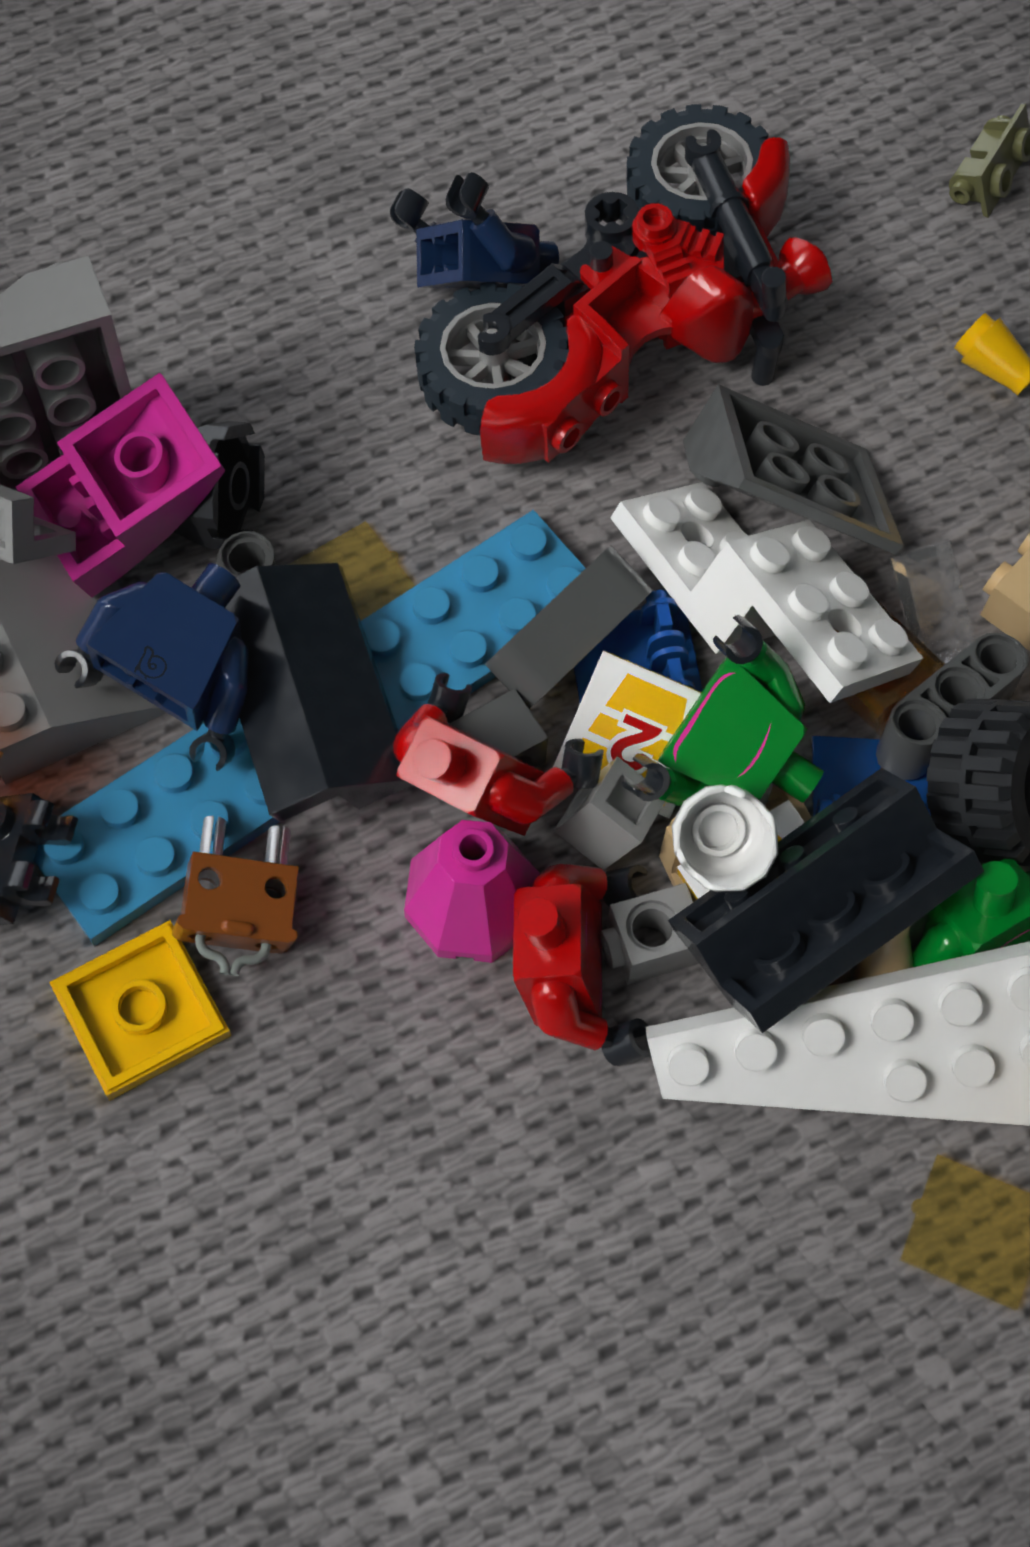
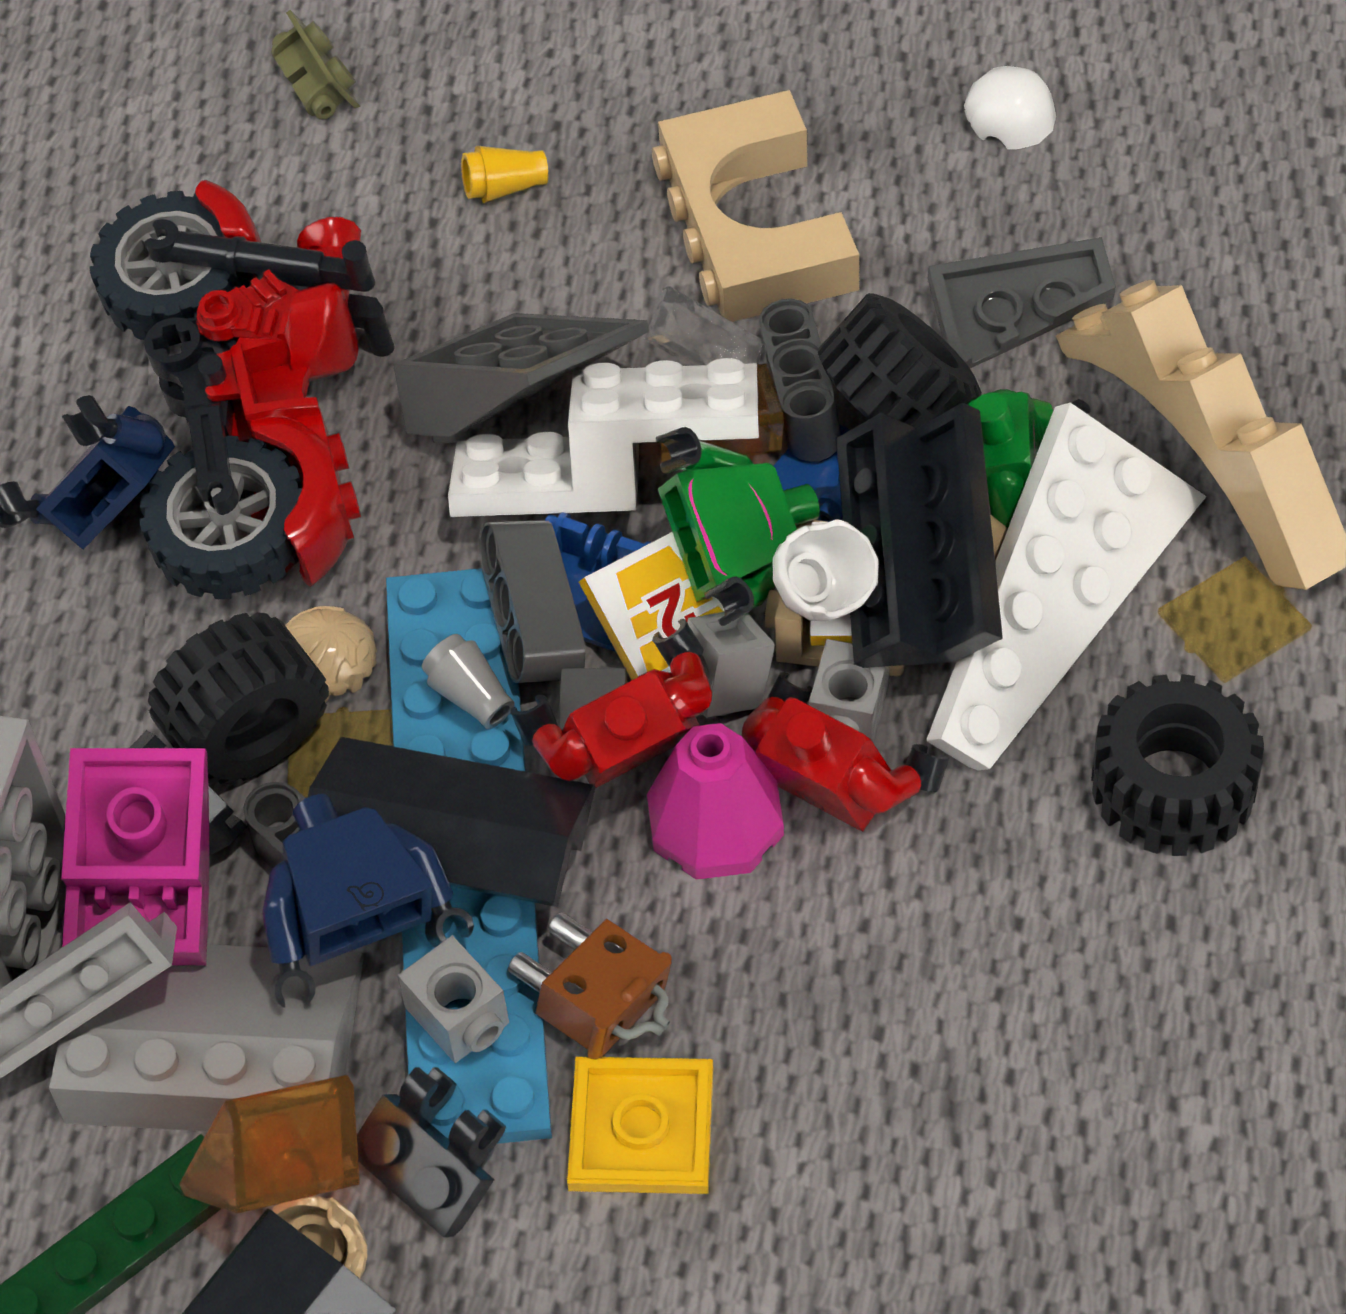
camera: 50 degrees left, 10 degrees down
(138, 769) = (450, 975): none -> light grey brick
(323, 467) = (240, 695): none -> black tyre
(433, 509) = (337, 645): none -> tan hair
(455, 624) = (465, 678): none -> light grey cone
(810, 1230) = (1167, 806): none -> black tyre

